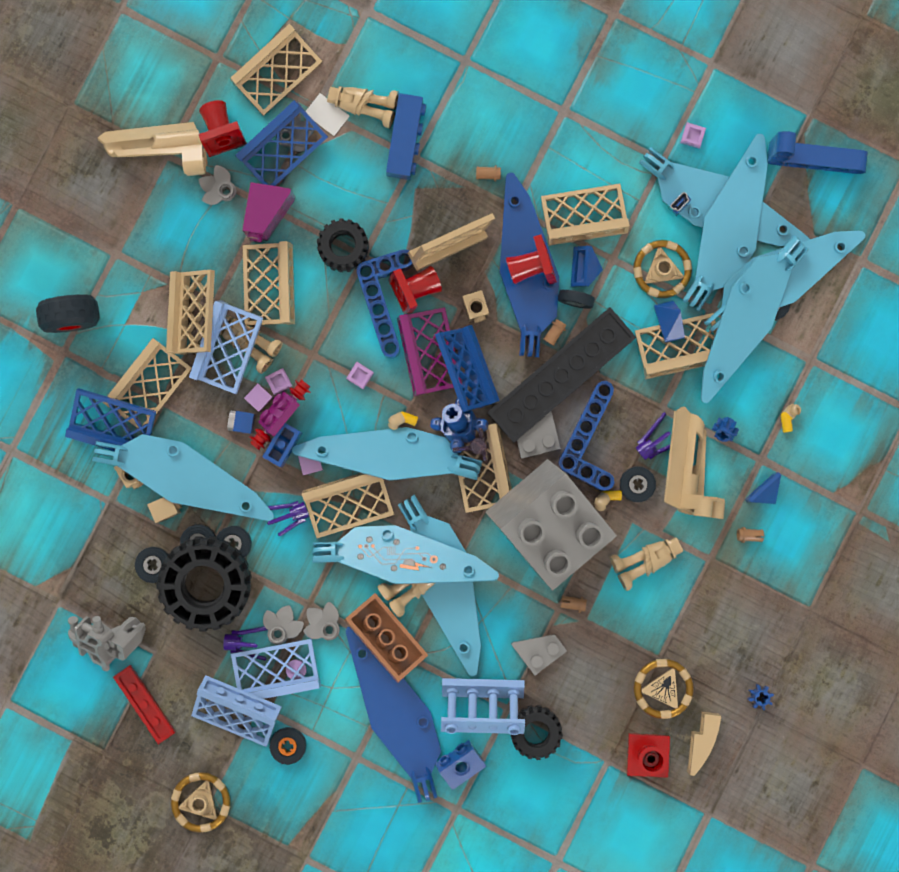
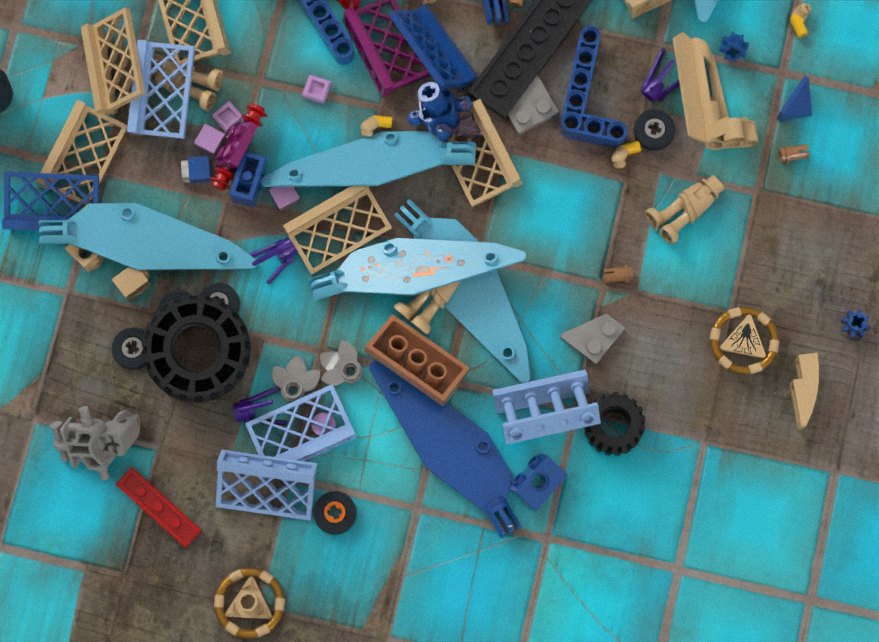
camera: 15 degrees left, 10 degrees down
(551, 524) = (569, 182): light grey piece -> none
(644, 745) = (741, 431): red plant -> none

